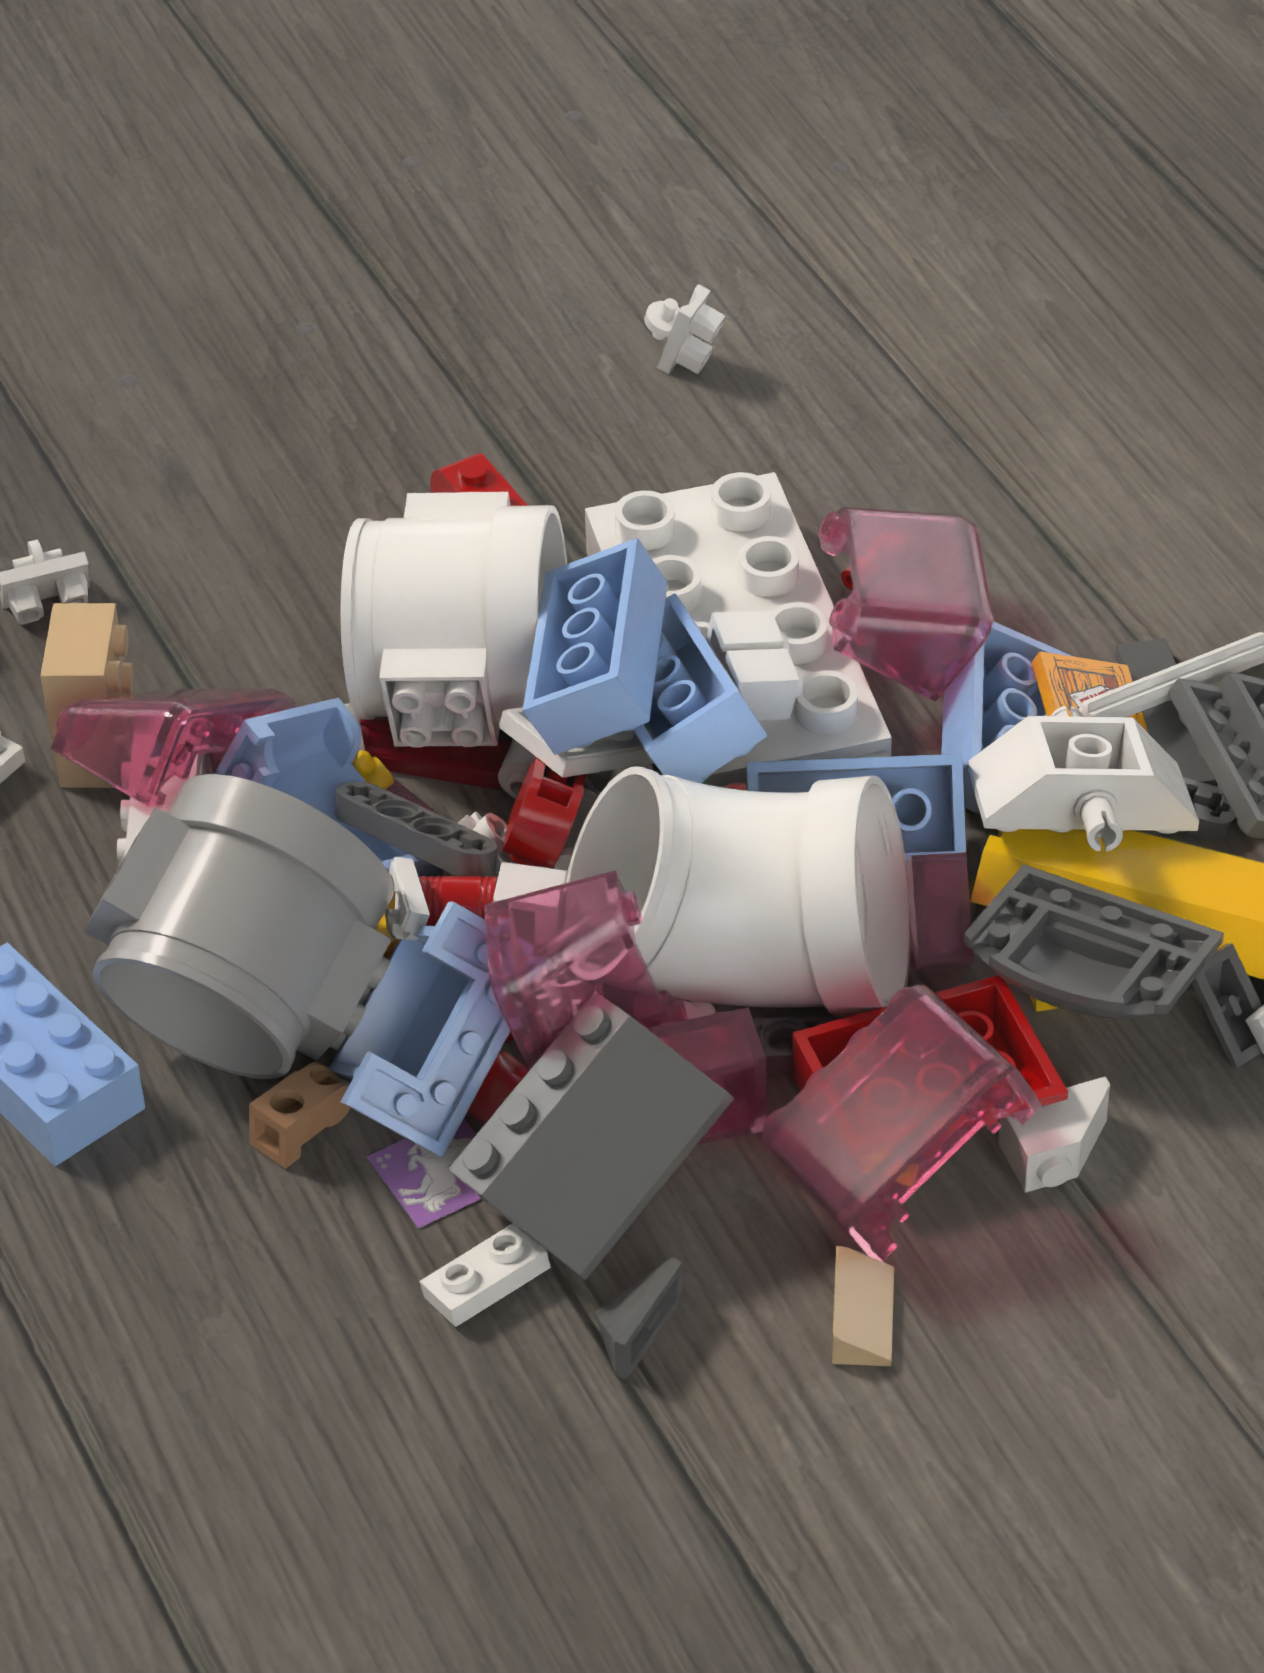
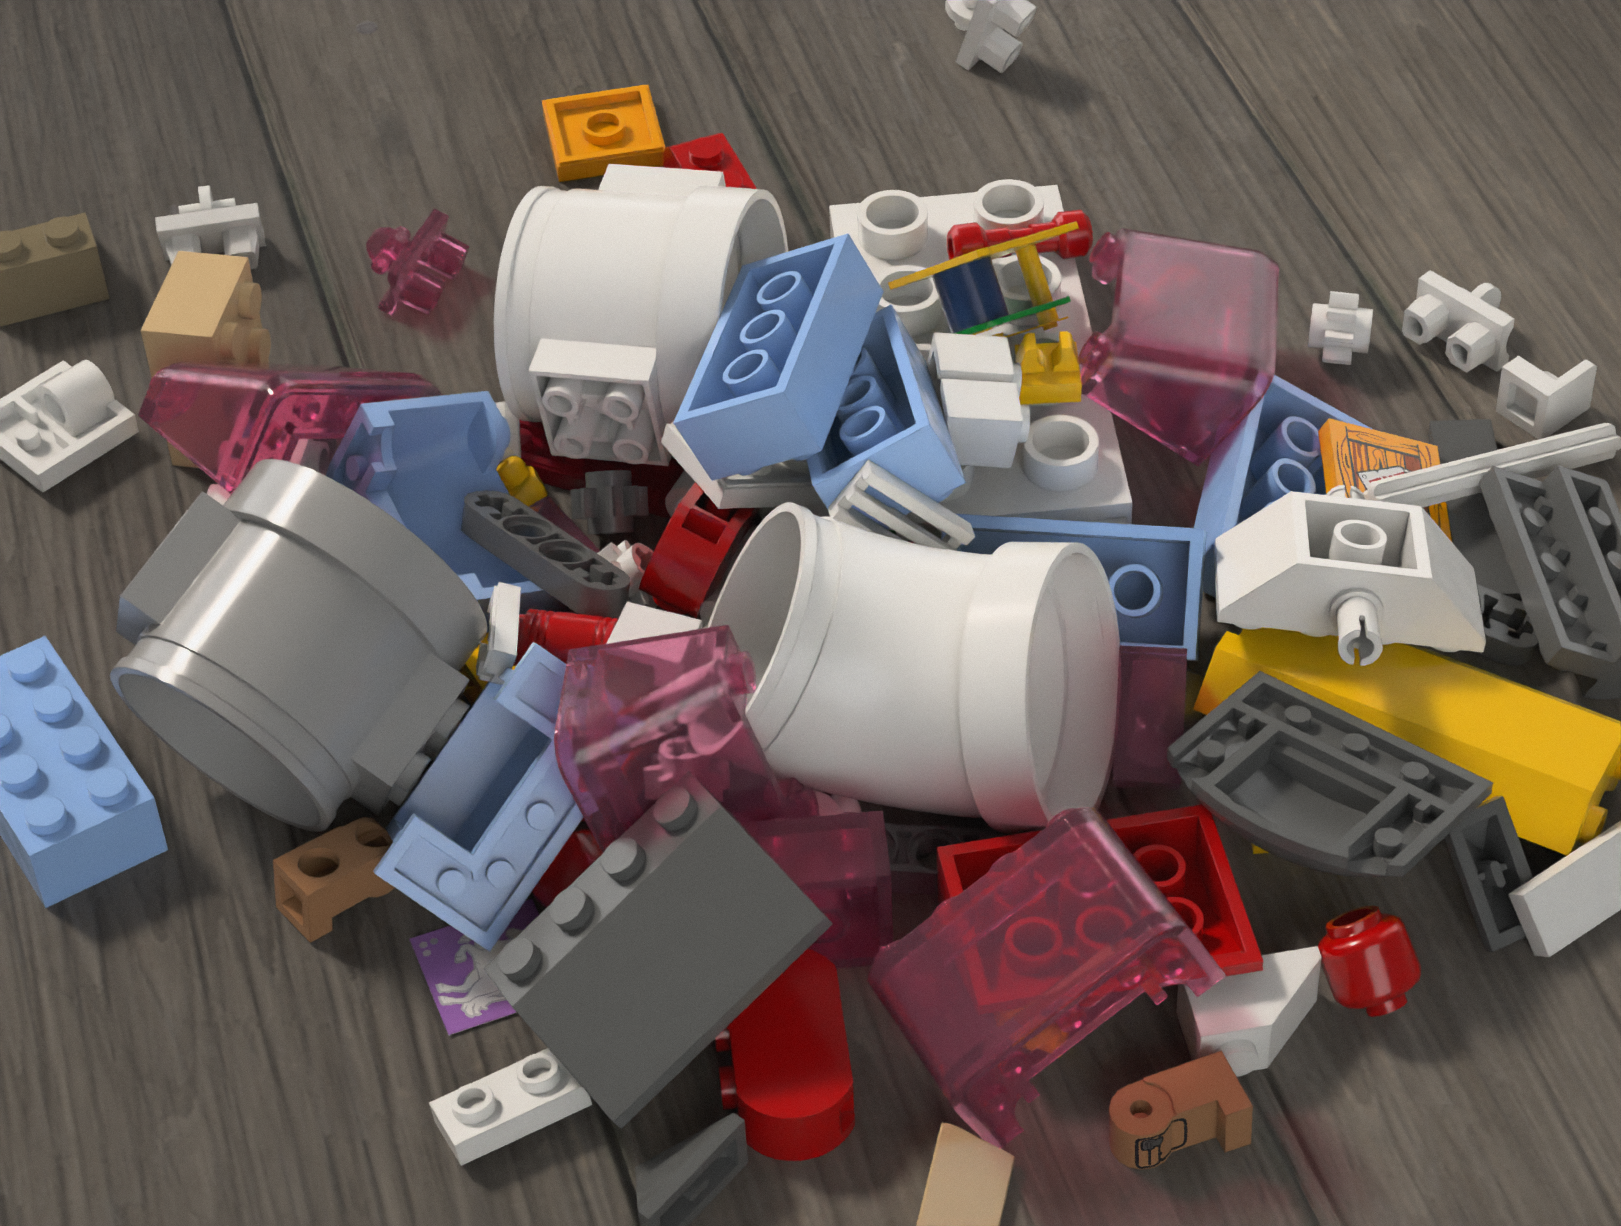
camera: 10 degrees right, 0 degrees up
(213, 583) = (409, 259): none -> clear pink hips
(365, 459) = (603, 130): none -> light orange tile
(451, 781) = (609, 502): none -> dark grey gear
(692, 736) = (871, 474): none -> white tile
(708, 1218) = (791, 1064): none -> red brick
(717, 533) = (1076, 243): none -> red piece
(735, 575) = (973, 293): none -> piece
(808, 633) = (1048, 370): none -> yellow tile
(1017, 1216) = (1178, 1111): none -> medium nougat leg
(1030, 573) = (1340, 328): none -> white gear
(1129, 555) = (1464, 319): none -> white hips
(1146, 1083) = (1369, 960): none -> red head
(1203, 618) = (1541, 400): none -> white panel

